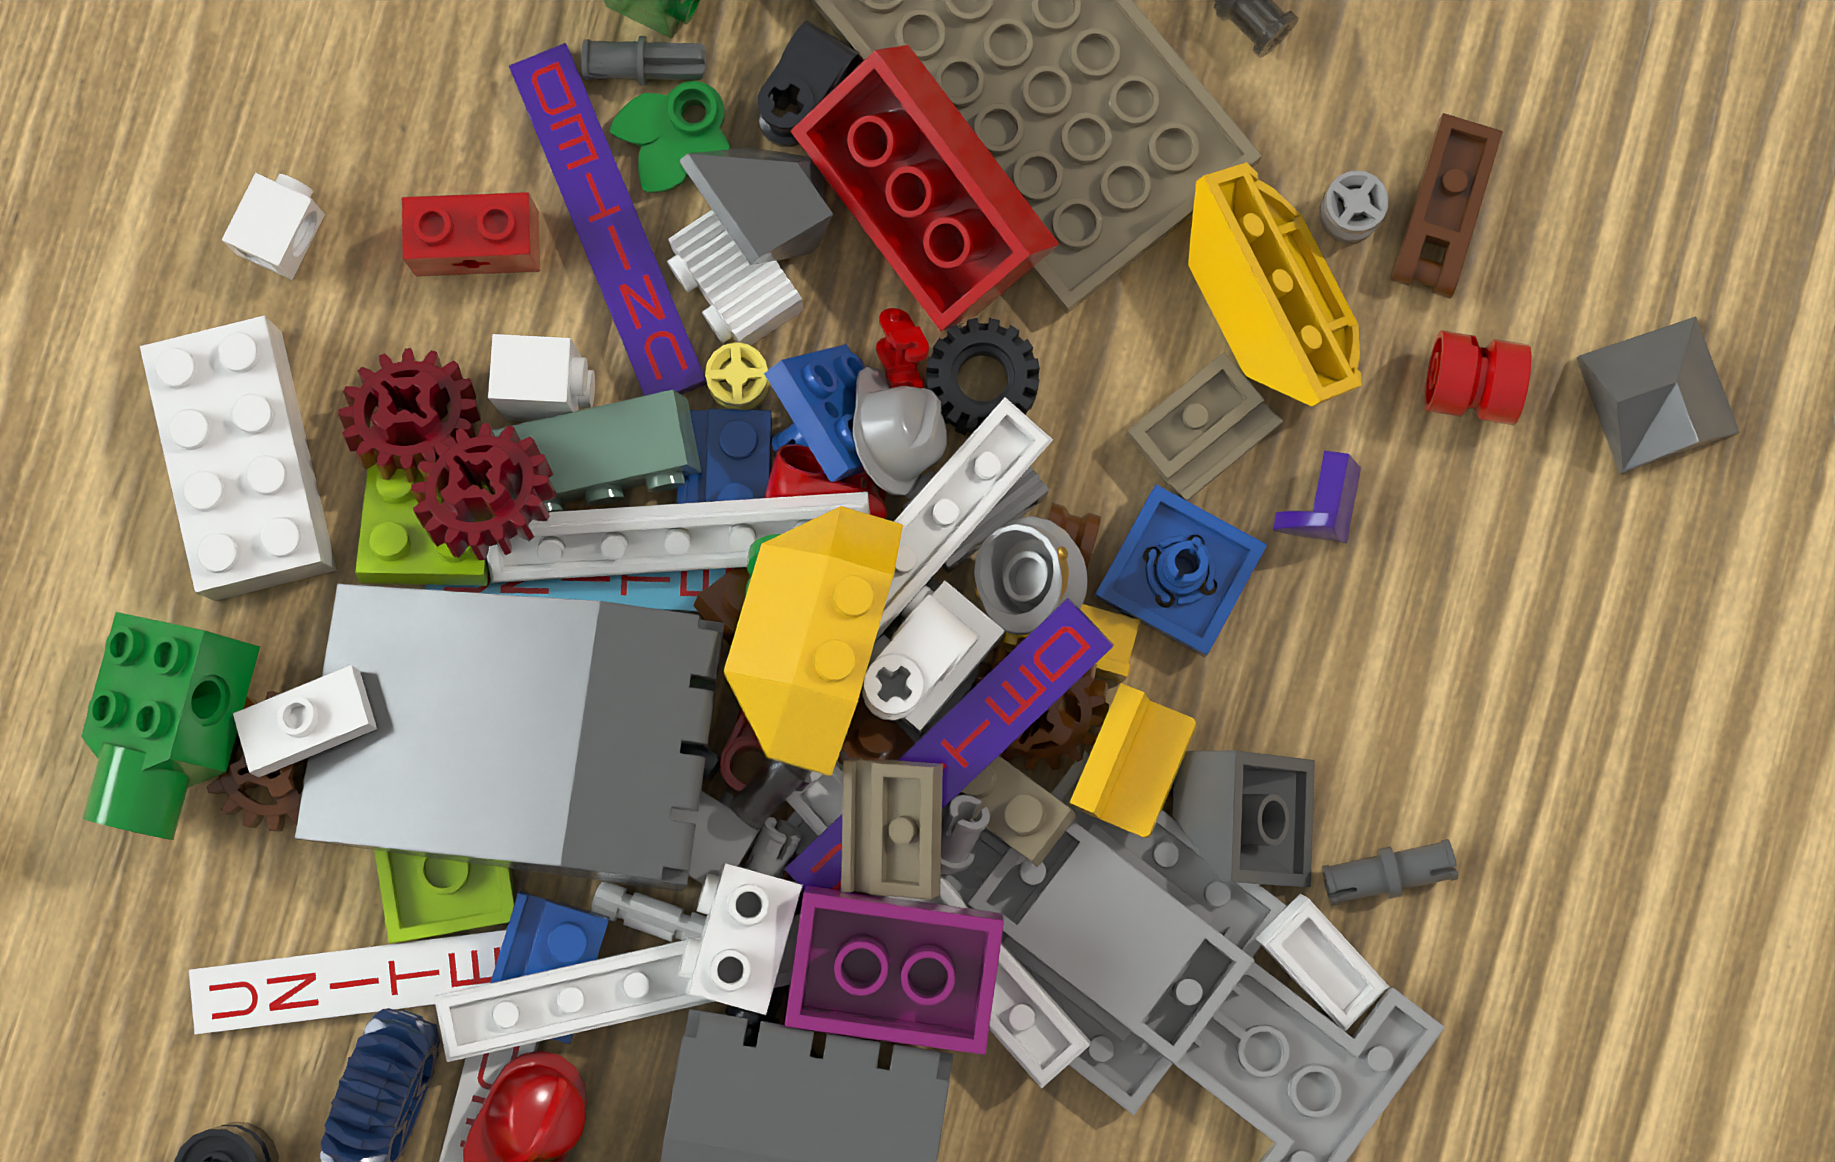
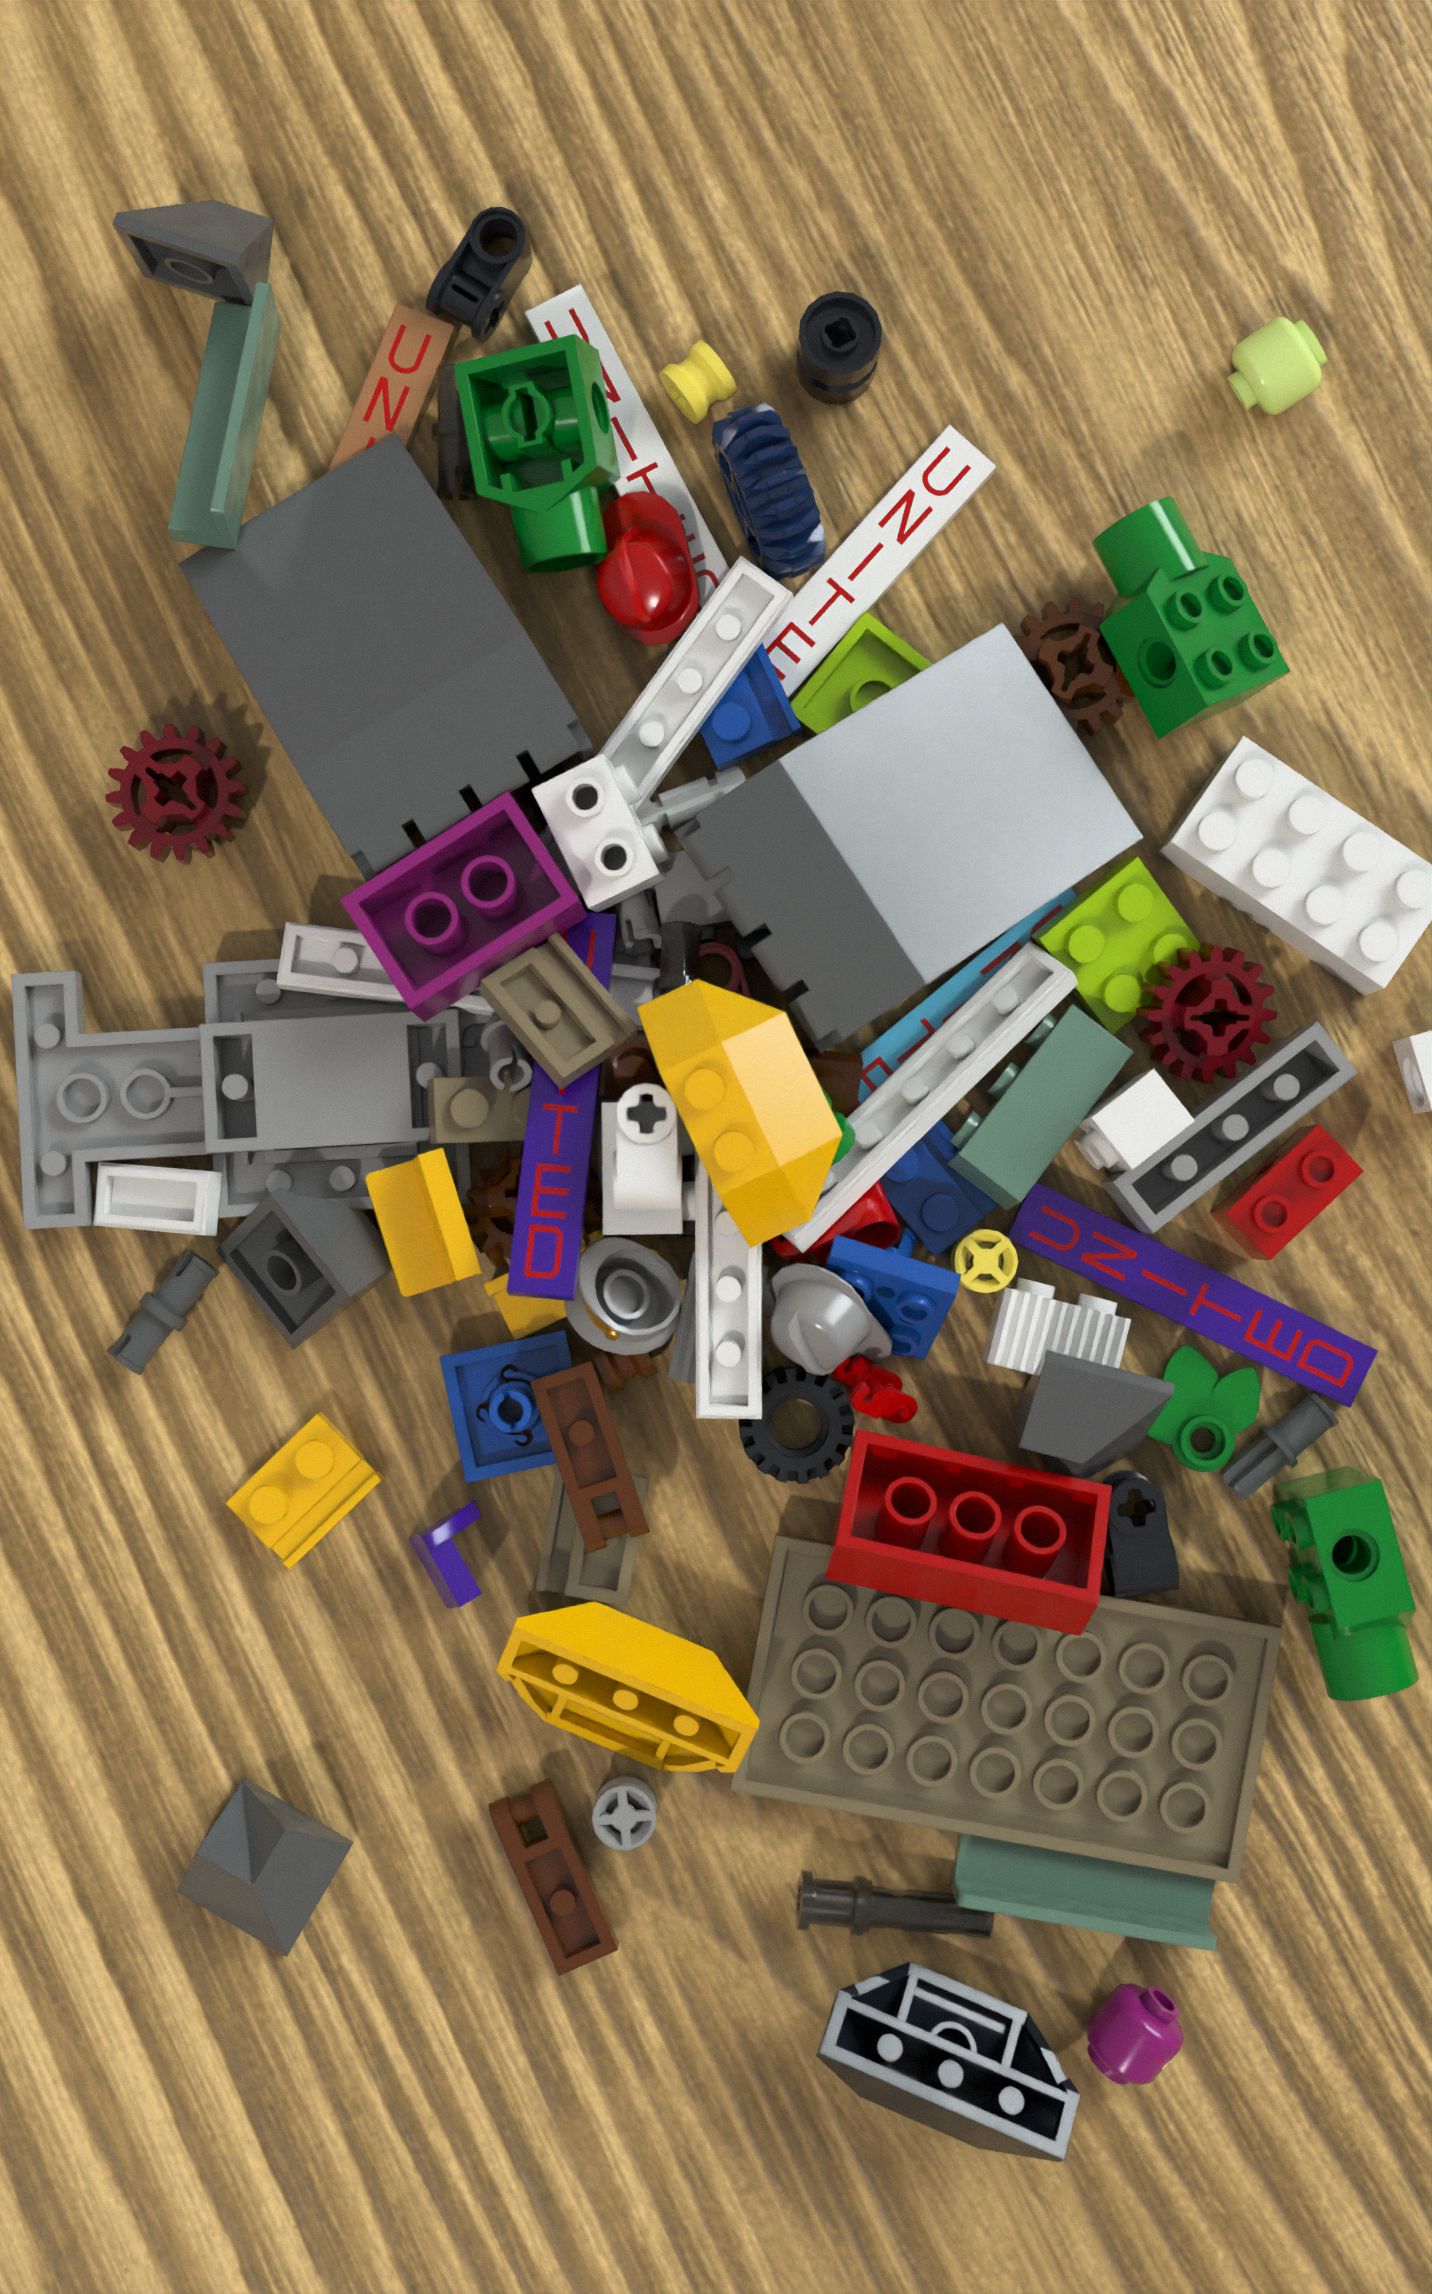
camera: 140 degrees right, 5 degrees up
(304, 721) = (1072, 711): white plate -> none
(464, 312) = (1232, 1127): none -> light grey brick
(478, 491) = (1085, 966): dark red gear -> none
(1154, 485) = (588, 1453): none -> reddish brown plate
(1394, 646) = (304, 1490): none -> yellow plate
(1478, 378) = (406, 1760): red wheel -> none

